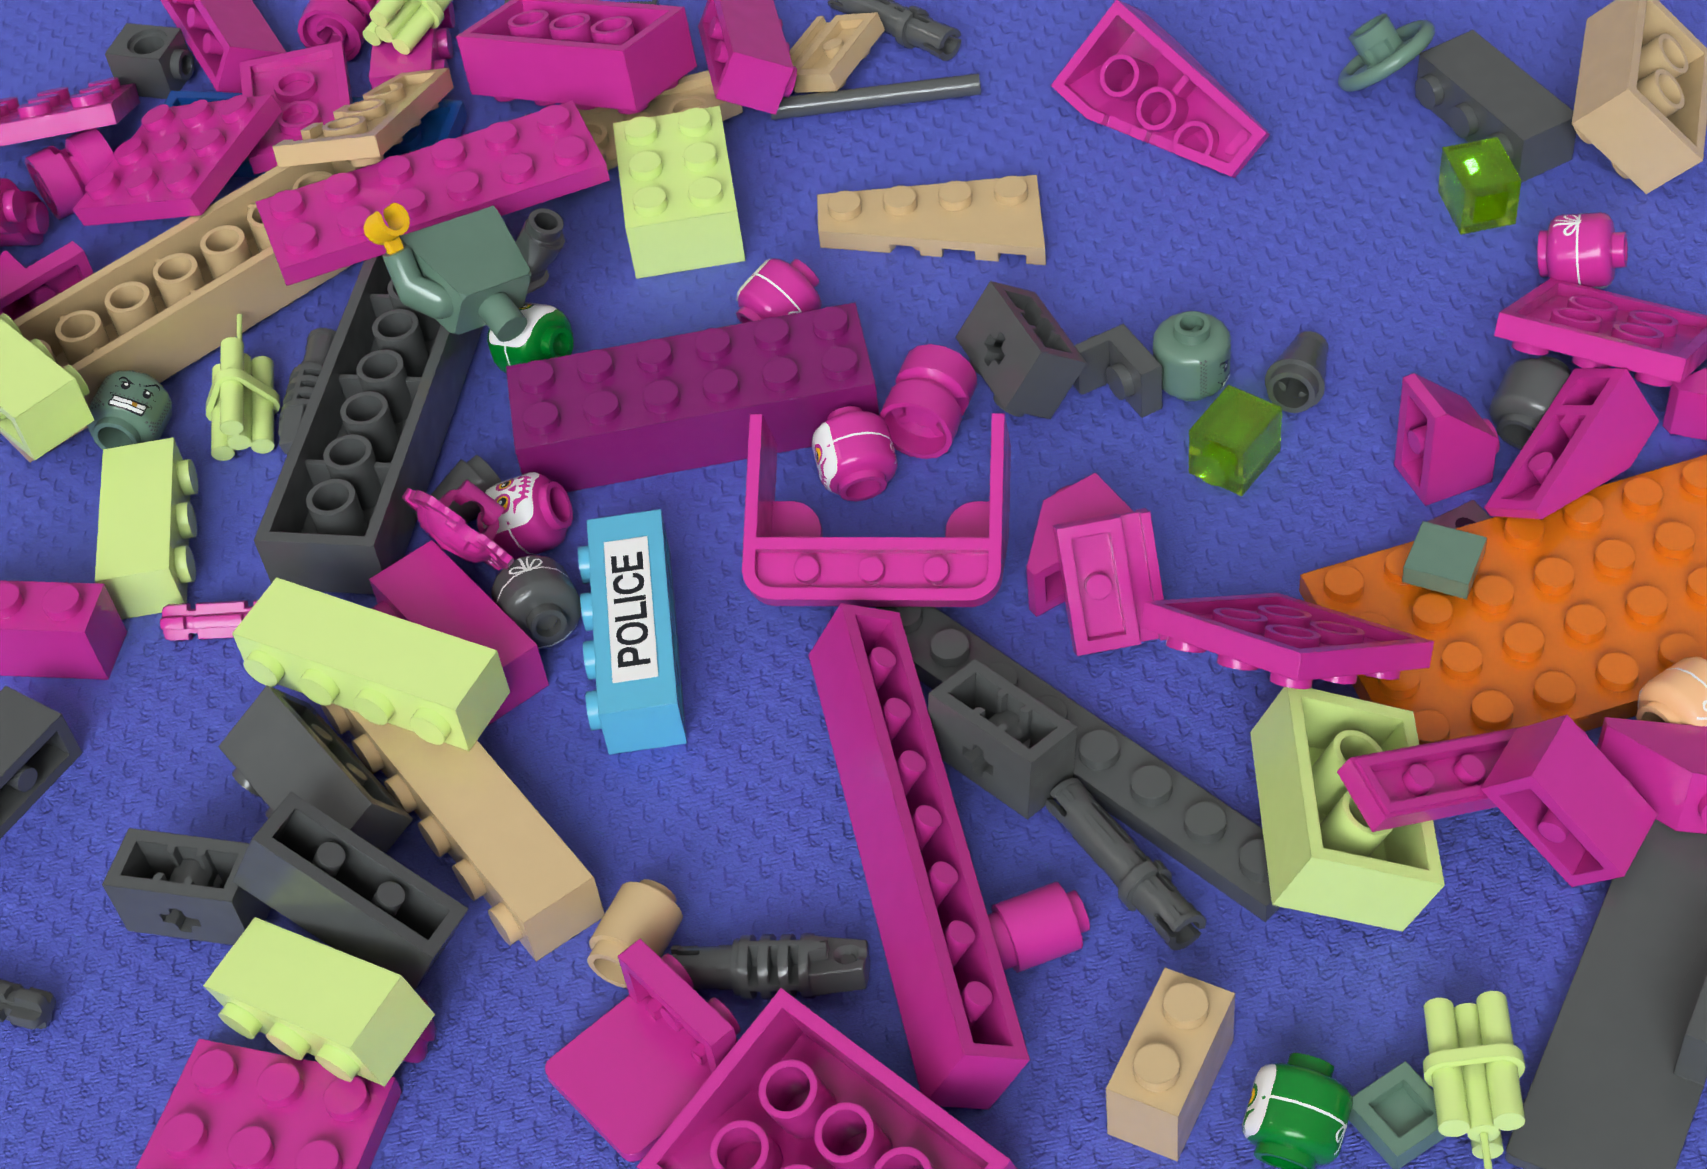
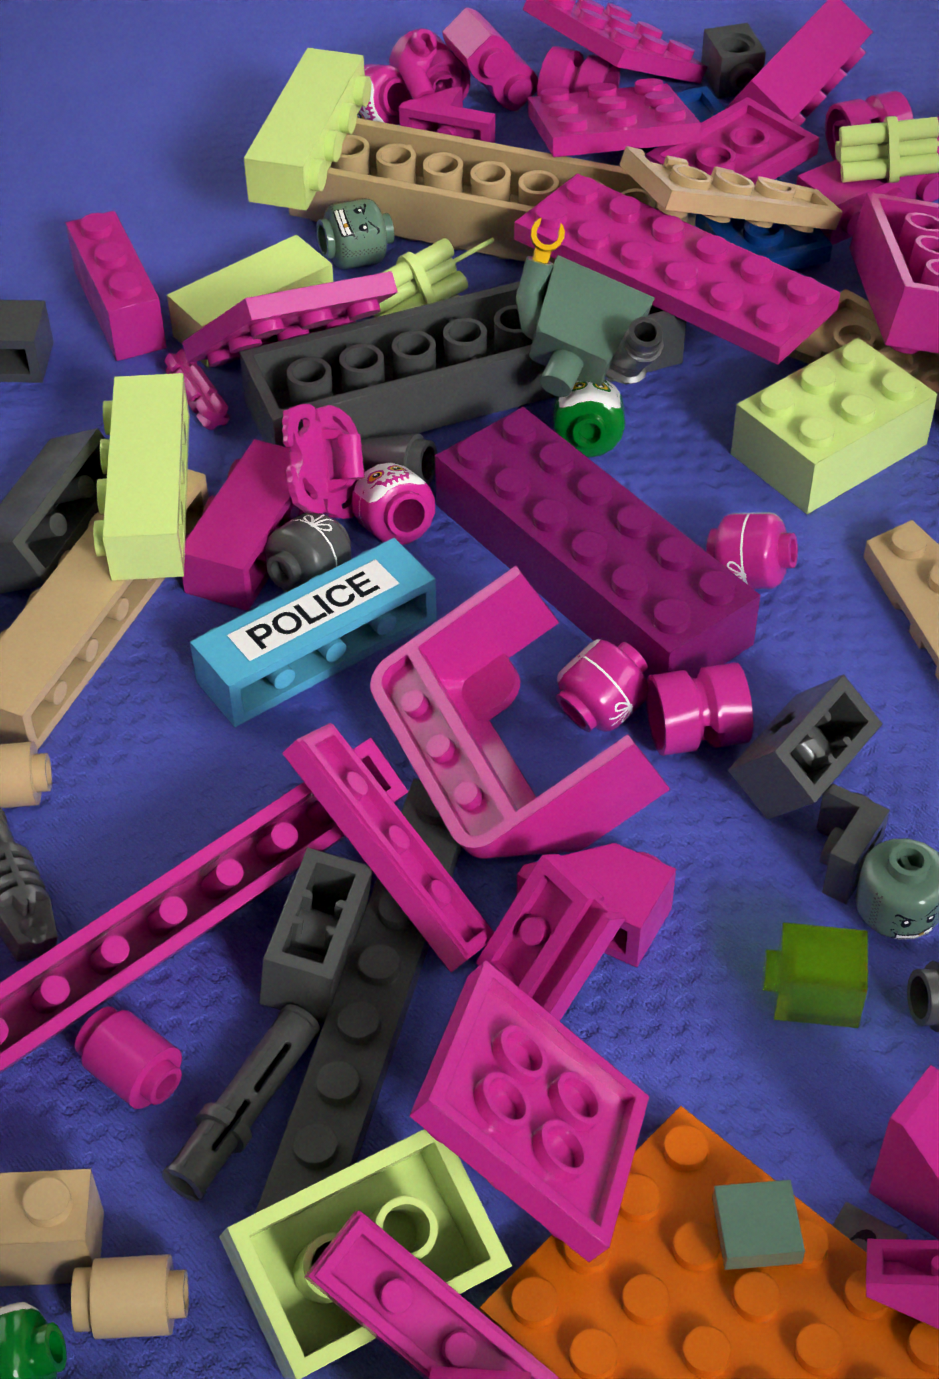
camera: 55 degrees right, 0 degrees up
(246, 485) = (288, 315): none -> dark pink plate
(955, 638) = (389, 845): none -> dark pink tile
(1279, 1004) = (129, 1297): none -> tan brick

